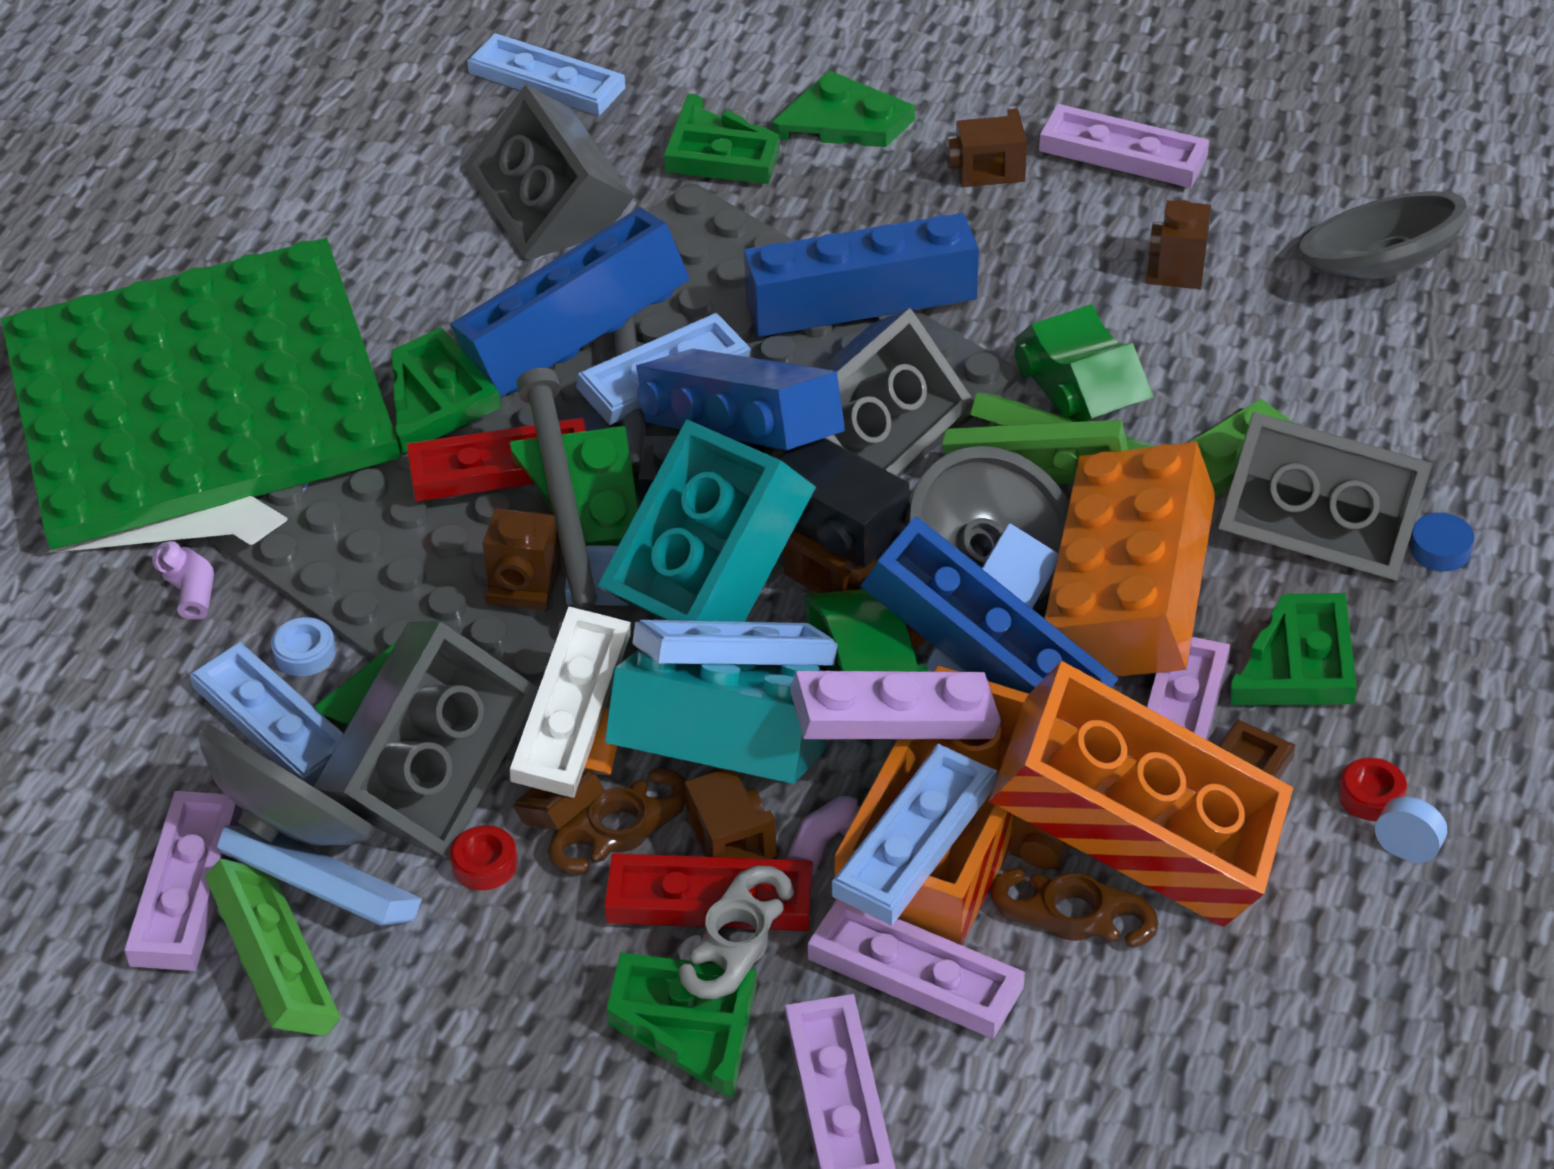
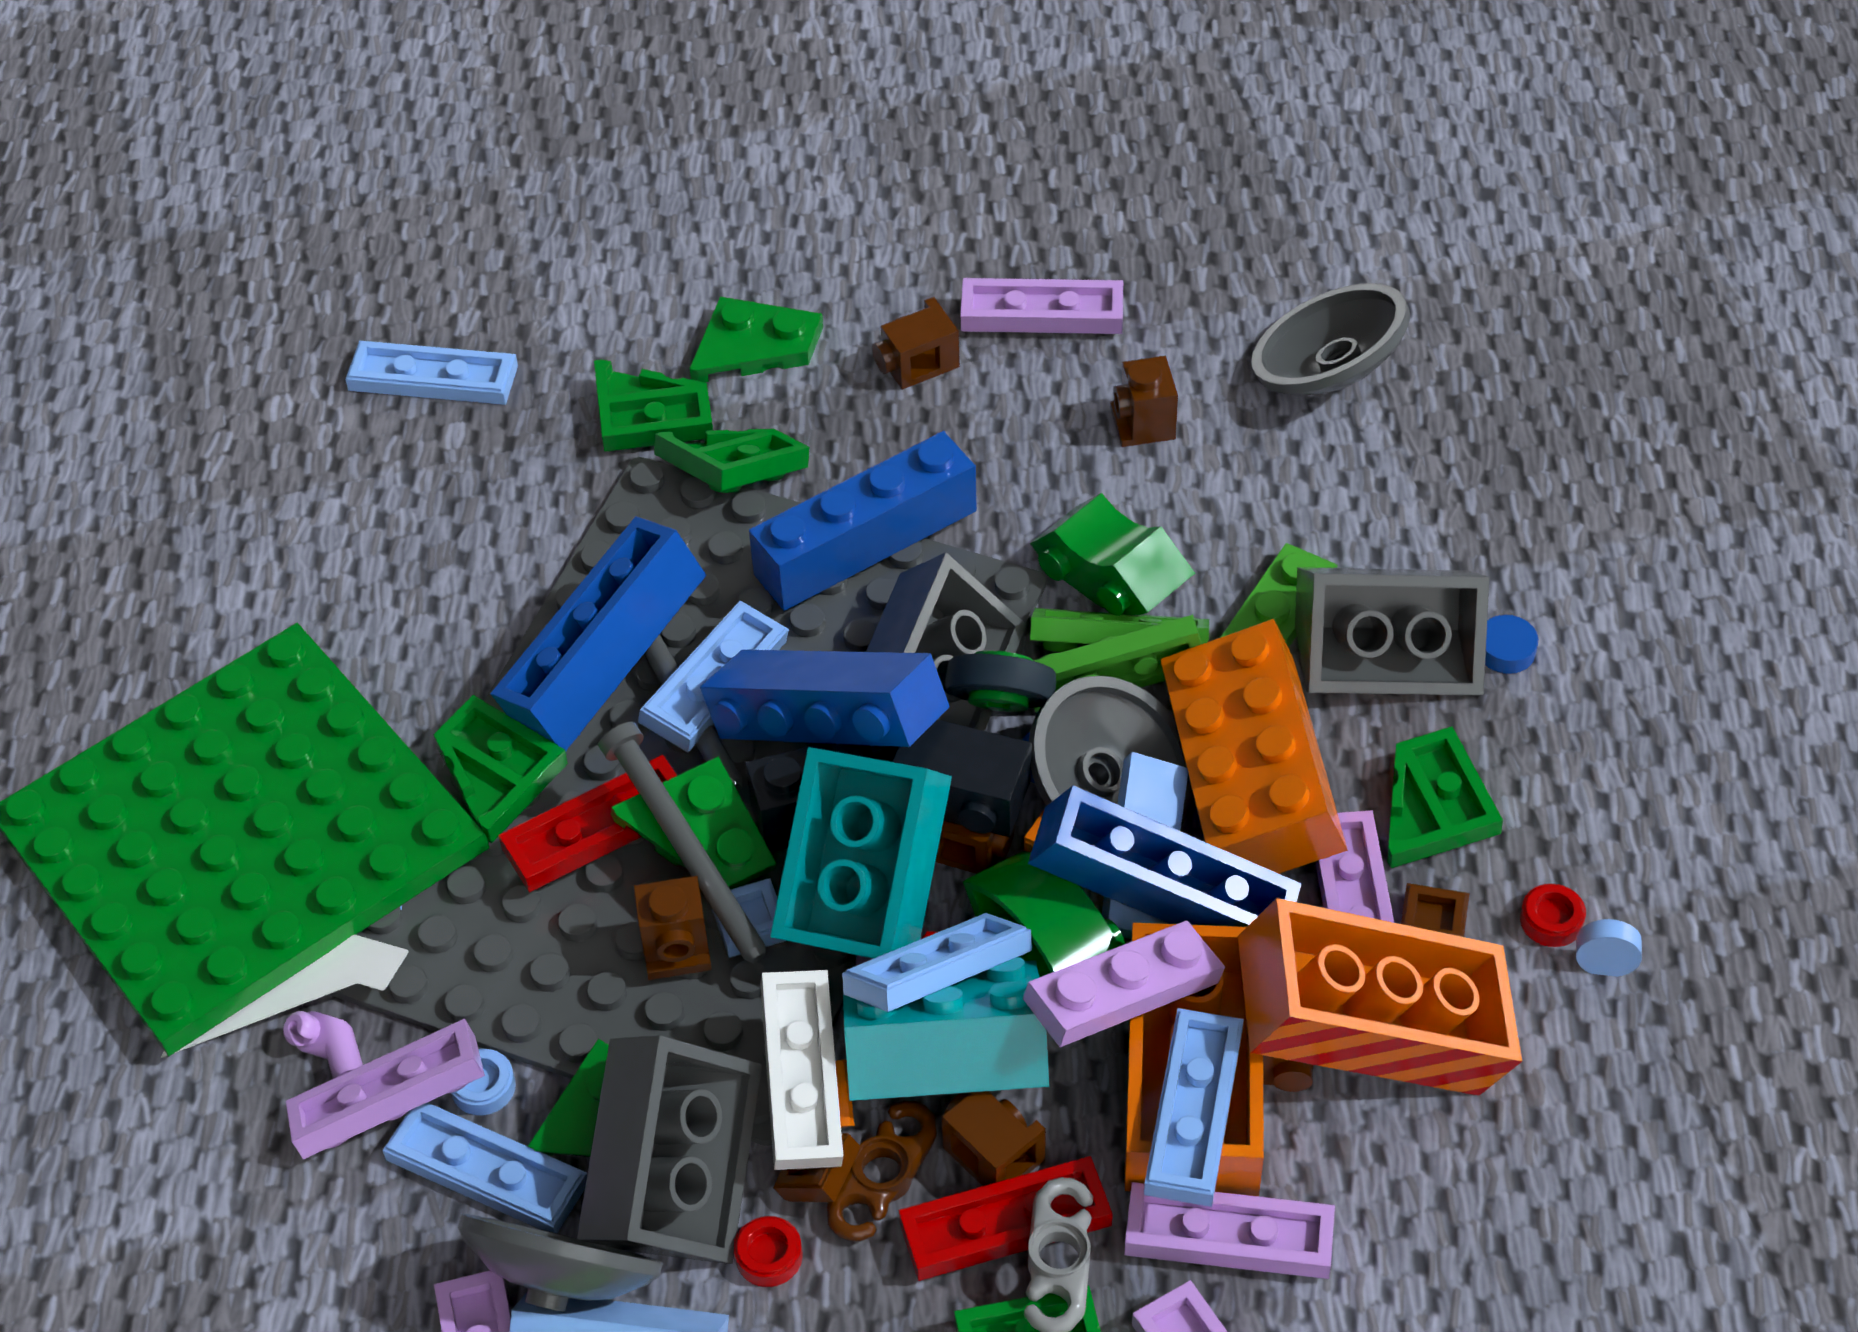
camera: 20 degrees left, 5 degrees up
(212, 623) = (384, 1089): none -> lavender plate
(546, 176) = (491, 492): dark grey slope -> none
(776, 200) = (735, 457): none -> green wing
(822, 826) = (1073, 1118): lavender arm -> none
(910, 427) = (1000, 680): none -> black wheel
(1105, 900) = (1367, 1105): reddish brown piece -> none

